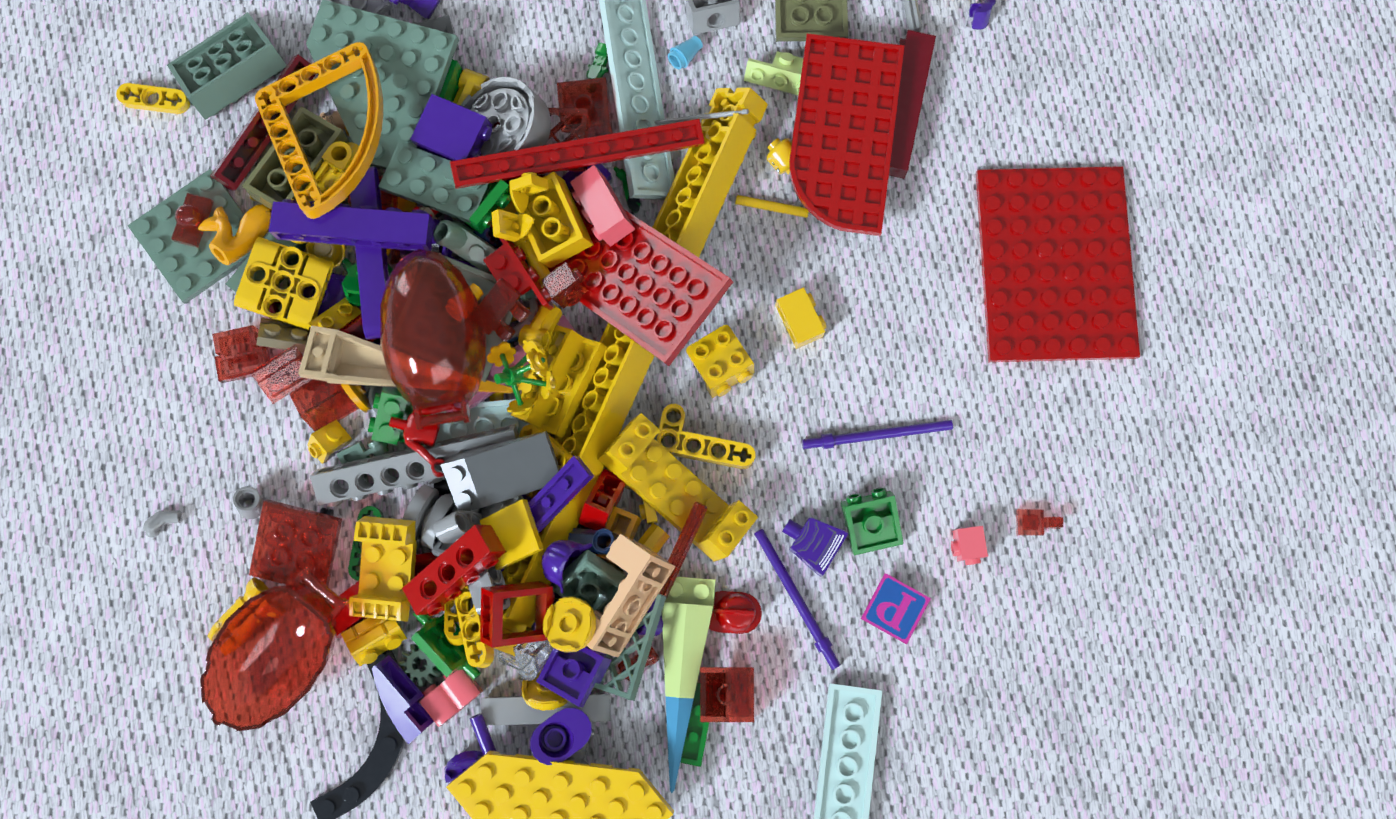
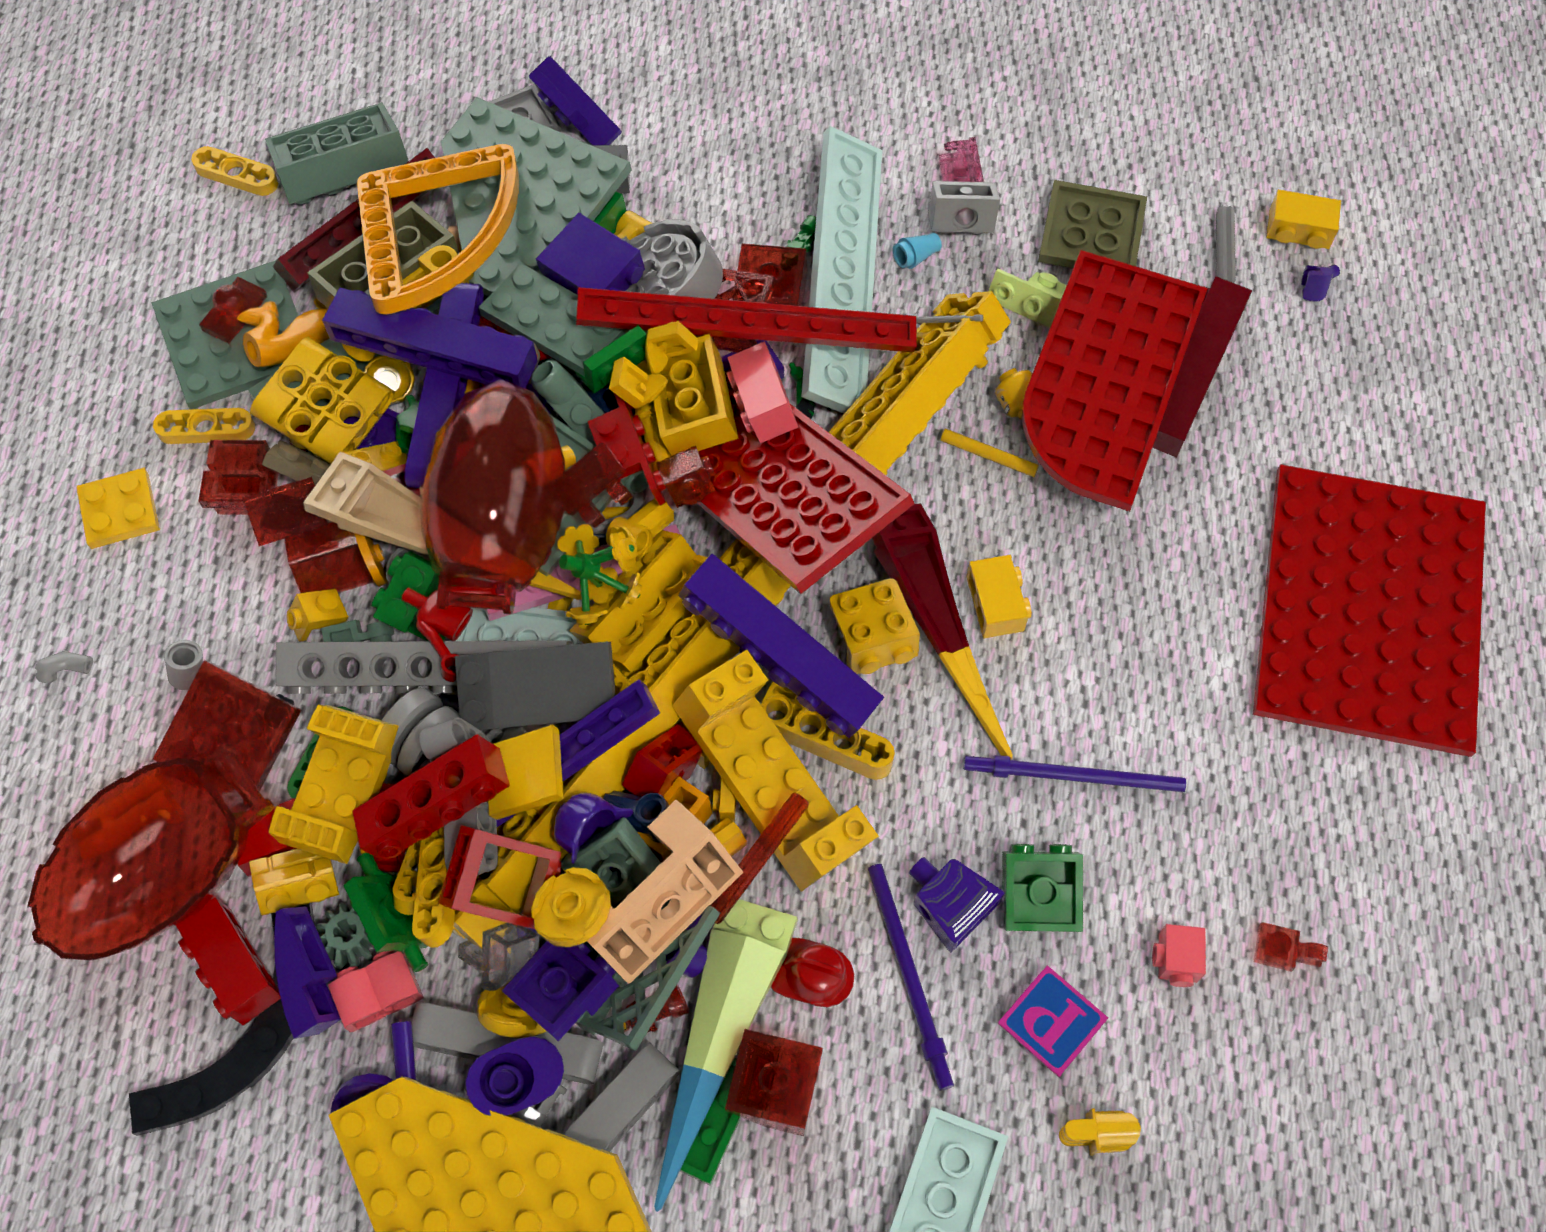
camera: 15 degrees right, 15 degrees down
(159, 394) = (117, 508): none -> yellow plate
(184, 327) = (192, 417): none -> yellow beam
(348, 703) = (227, 962): none -> red brick
(632, 729) = (624, 1100): none -> light grey beam
(661, 401) = (780, 646): none -> dark purple brick
(746, 318) = (914, 558): none -> dark red plate
(940, 672) = (1102, 1131): none -> yellow arm

